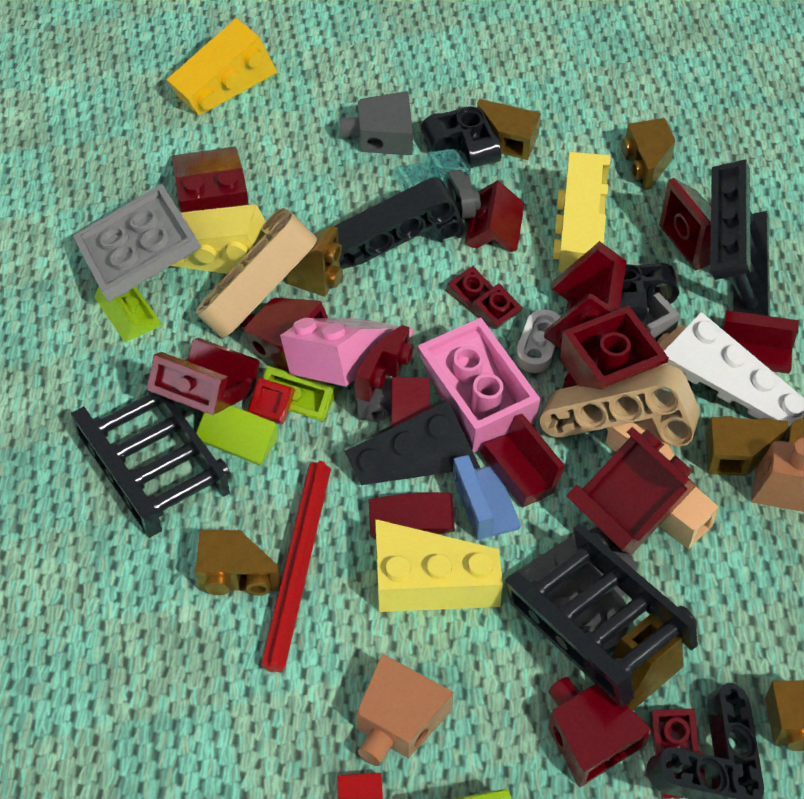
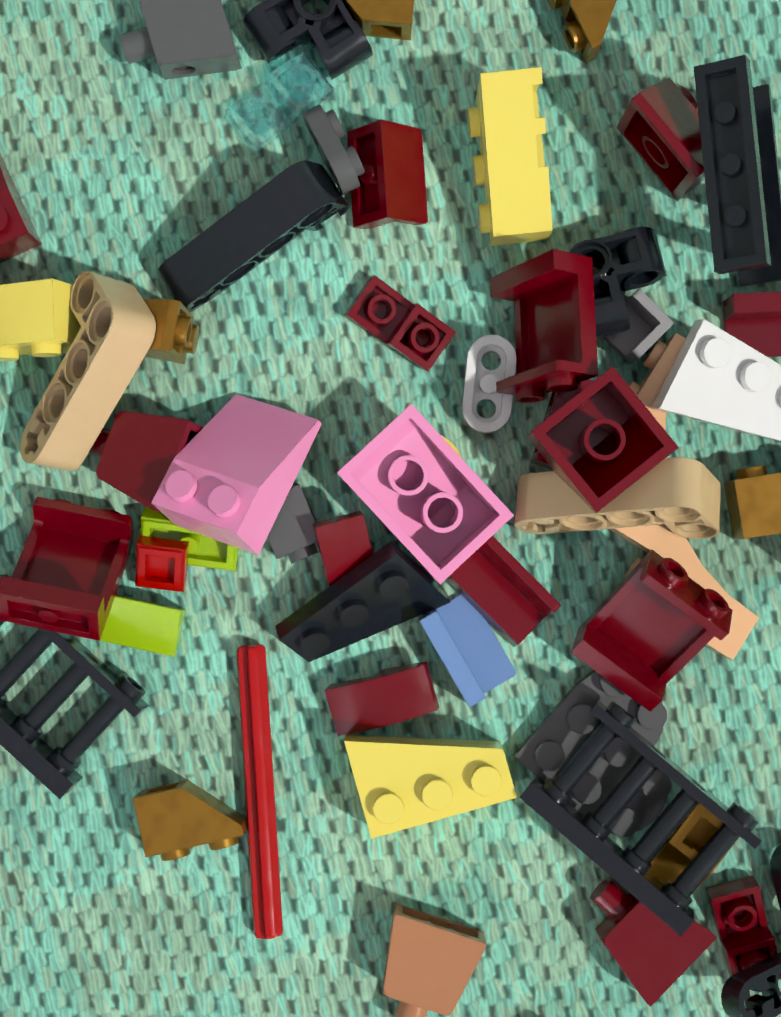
camera: 10 degrees left, 35 degrees up
(383, 360) = (305, 492): dark red slope -> none

